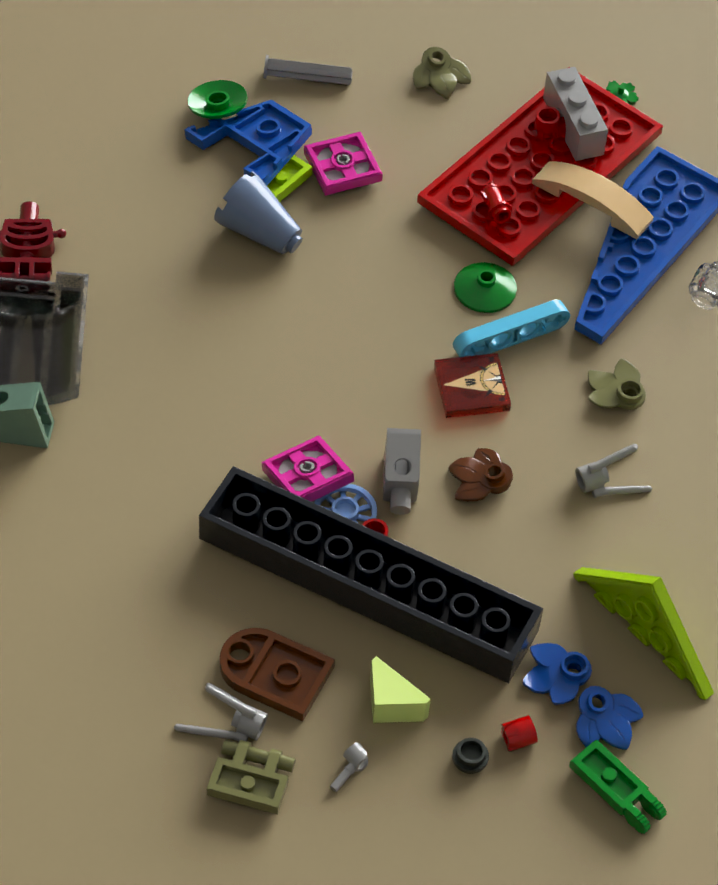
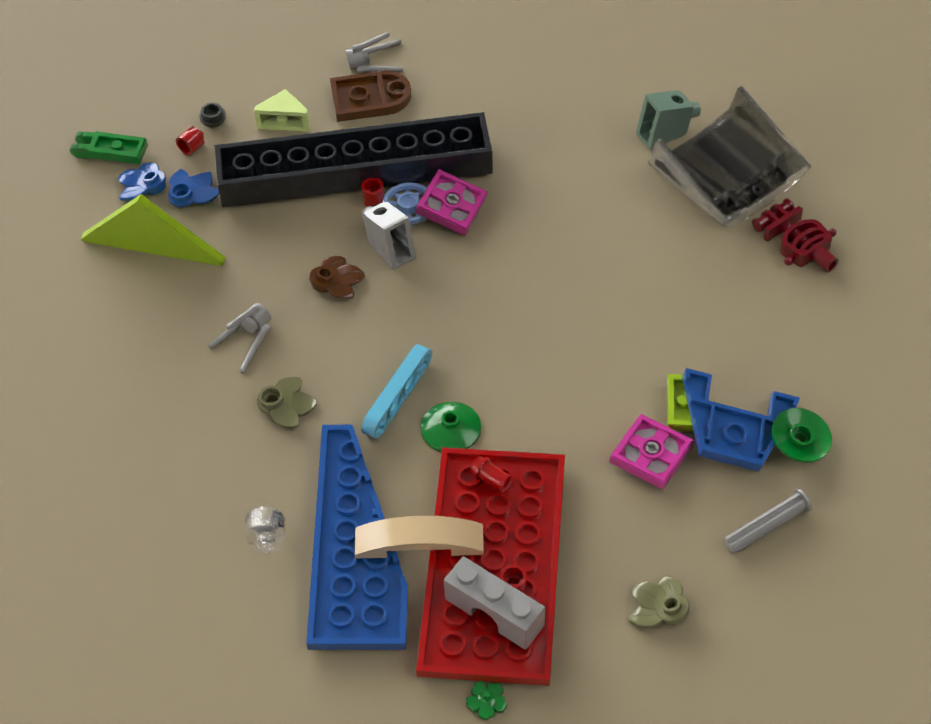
camera: 150 degrees right, 0 degrees up
(248, 784) = (328, 31): olive plate -> none
(259, 215) = (659, 349): sand blue cone -> none
(357, 759) = (281, 77): light grey hand -> none
(472, 385) = (393, 336): clear red tile -> none

